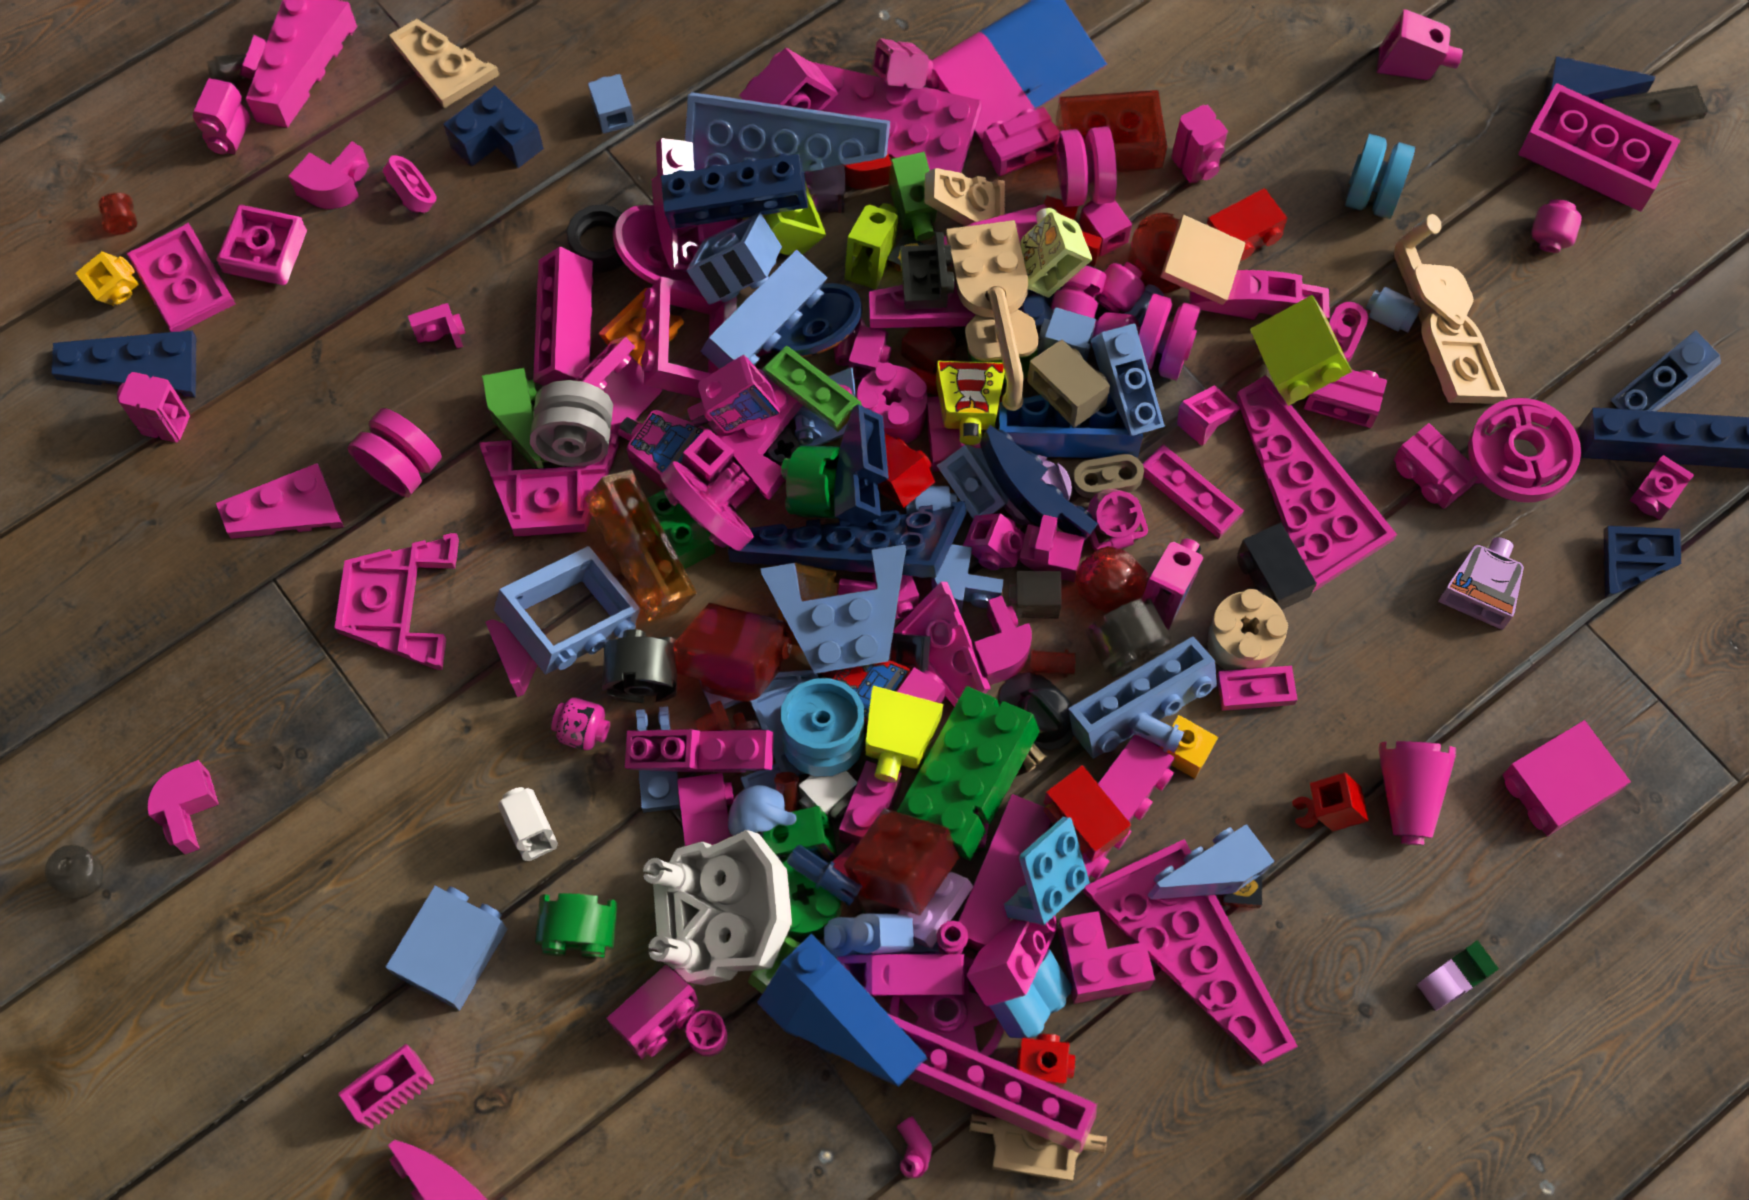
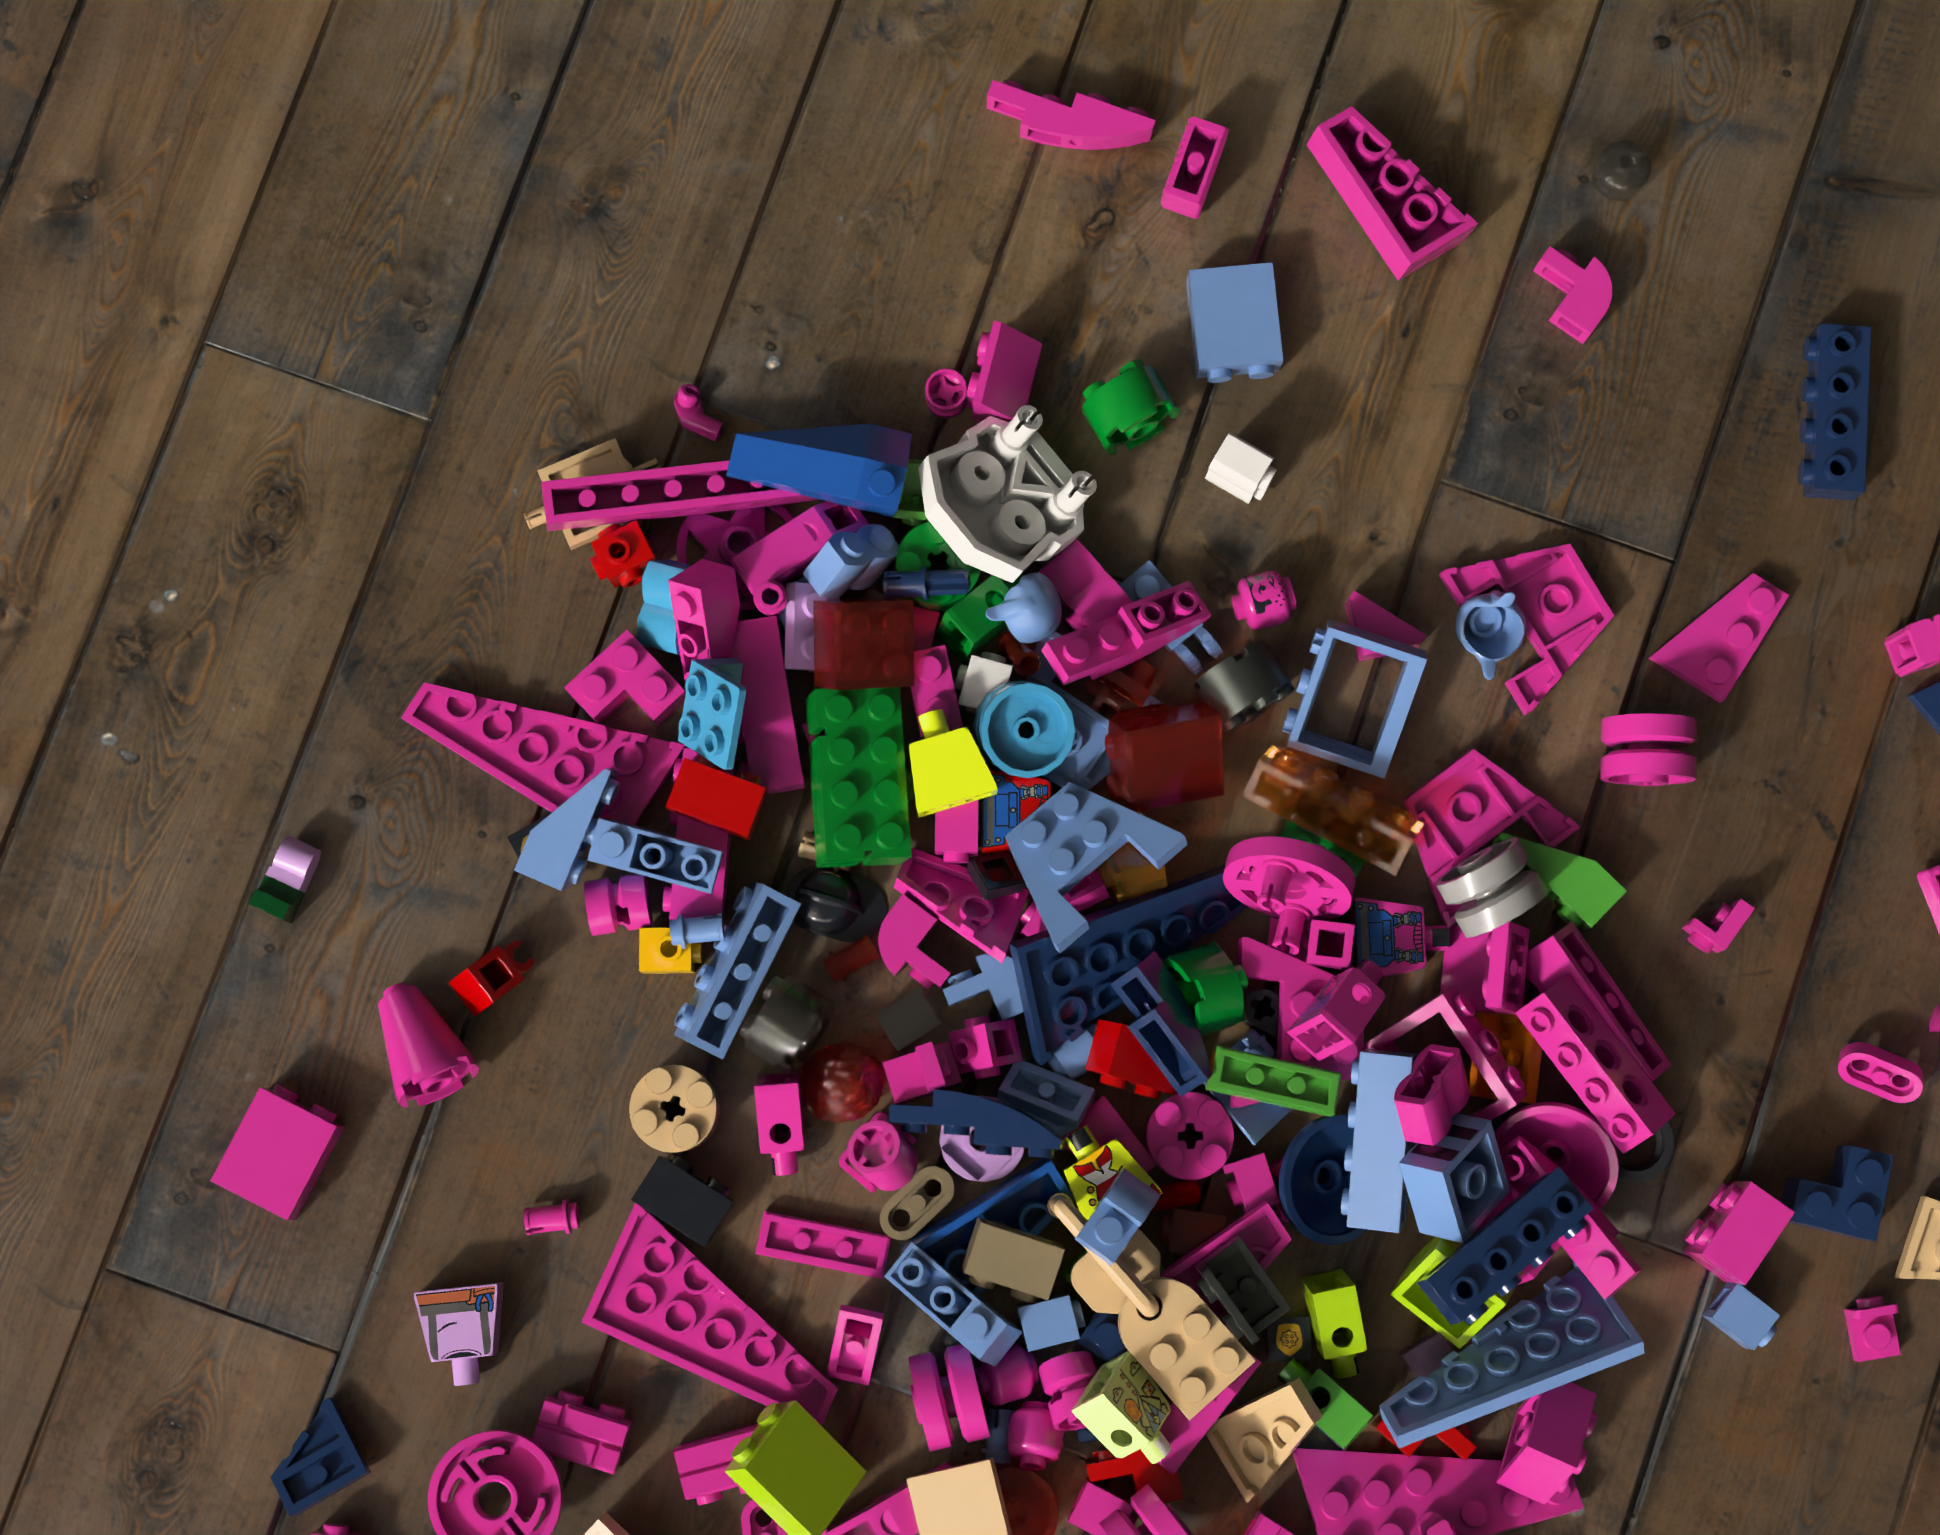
camera: 145 degrees right, 15 degrees up
(76, 602) = (1835, 412): none -> dark blue brick
(259, 967) = (1387, 195): none -> dark pink wedge
(436, 602) = (1491, 628): none -> medium blue hair
(535, 55) = (1872, 1329): none -> dark pink bracket
(576, 141) = (1736, 1231): none -> dark pink brick
(588, 278) = (1595, 1064): none -> dark pink brick
(713, 307) = (1432, 1094): none -> dark pink brick
(973, 348) = (1117, 1216): none -> medium blue brick
(1158, 805) = (655, 855): none -> medium blue slope
(1205, 799) = (618, 904): none -> dark pink wheel
(1256, 688) = (632, 1059): dark pink plate -> none
(1379, 617) = (552, 1218): none -> dark pink pin

